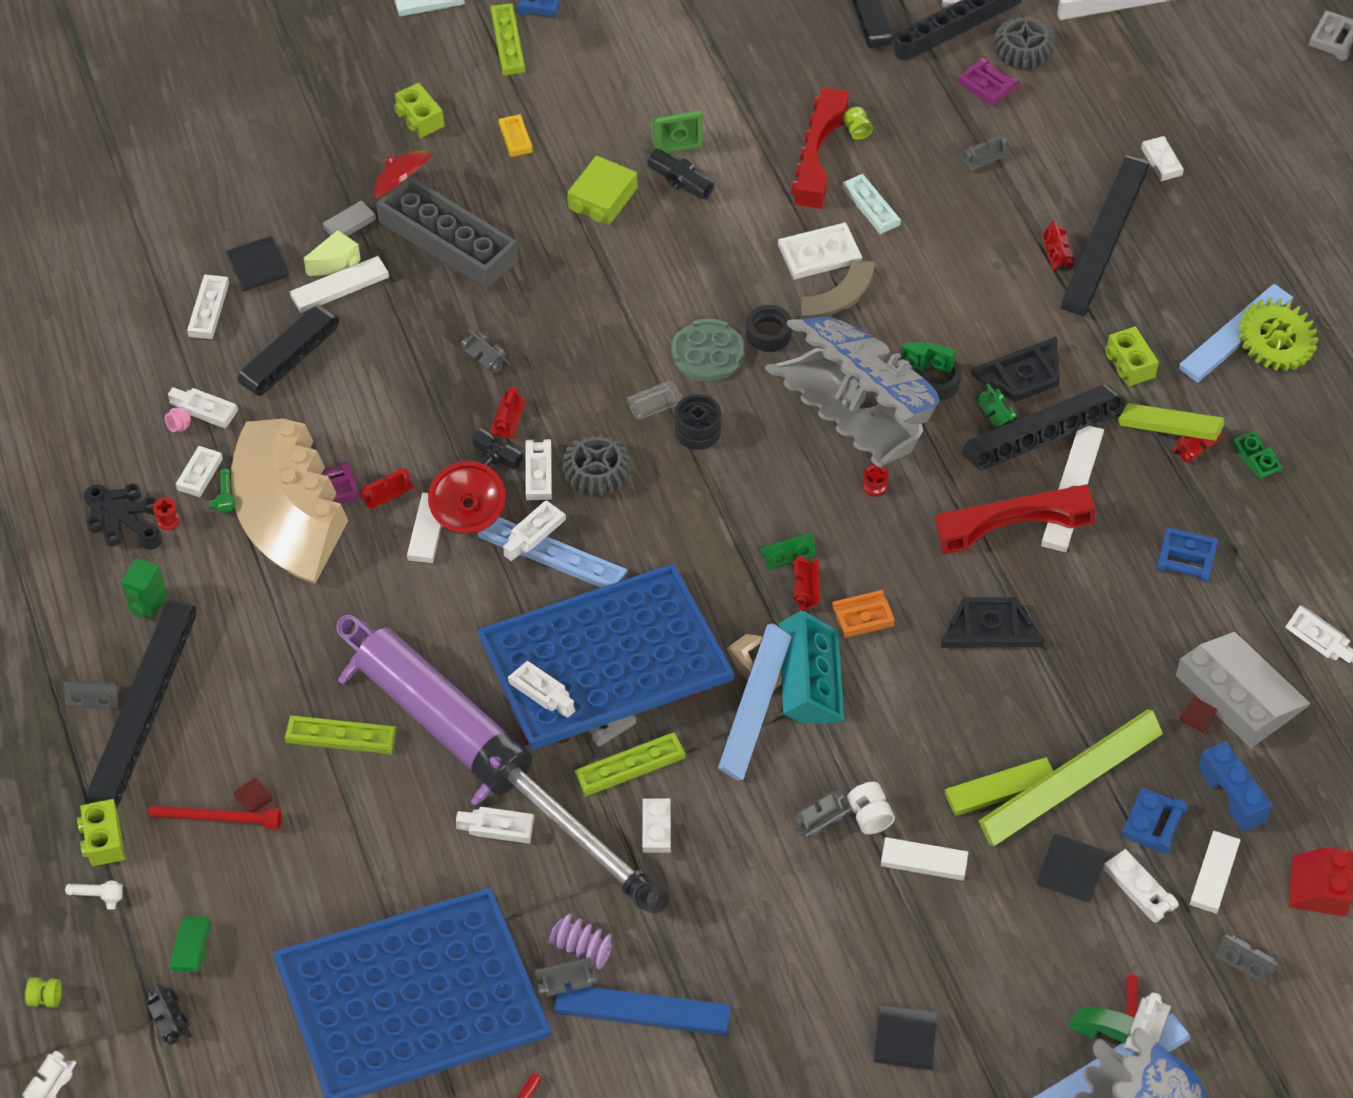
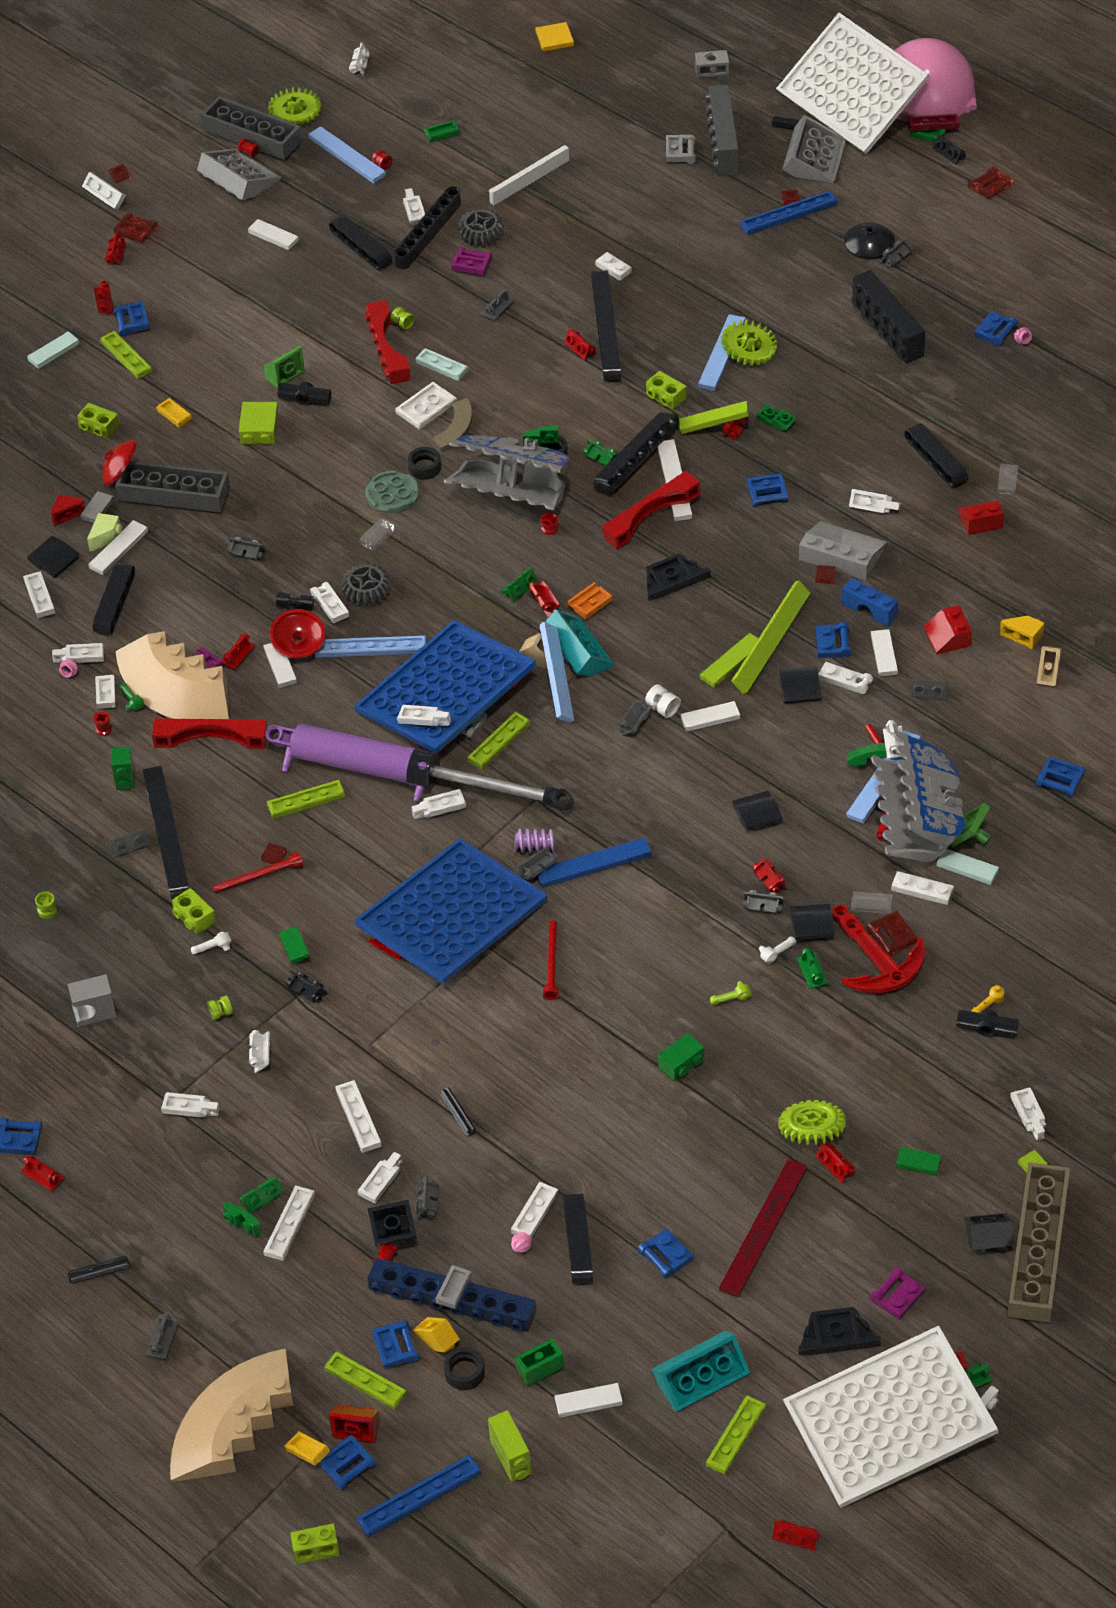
camera: 25 degrees left, 5 degrees down
(122, 513) = (49, 733): black plant -> none
(239, 564) = (172, 732): none -> red arch
(308, 208) = (66, 508): none -> red slope
(508, 414) = (287, 578): red hinge -> none
(533, 530) = (352, 635): white hinge -> none
(656, 826) = (537, 765): white plate -> none
(698, 422) = (415, 534): black wheel -> none
(1022, 371) = (603, 425): black wing -> none

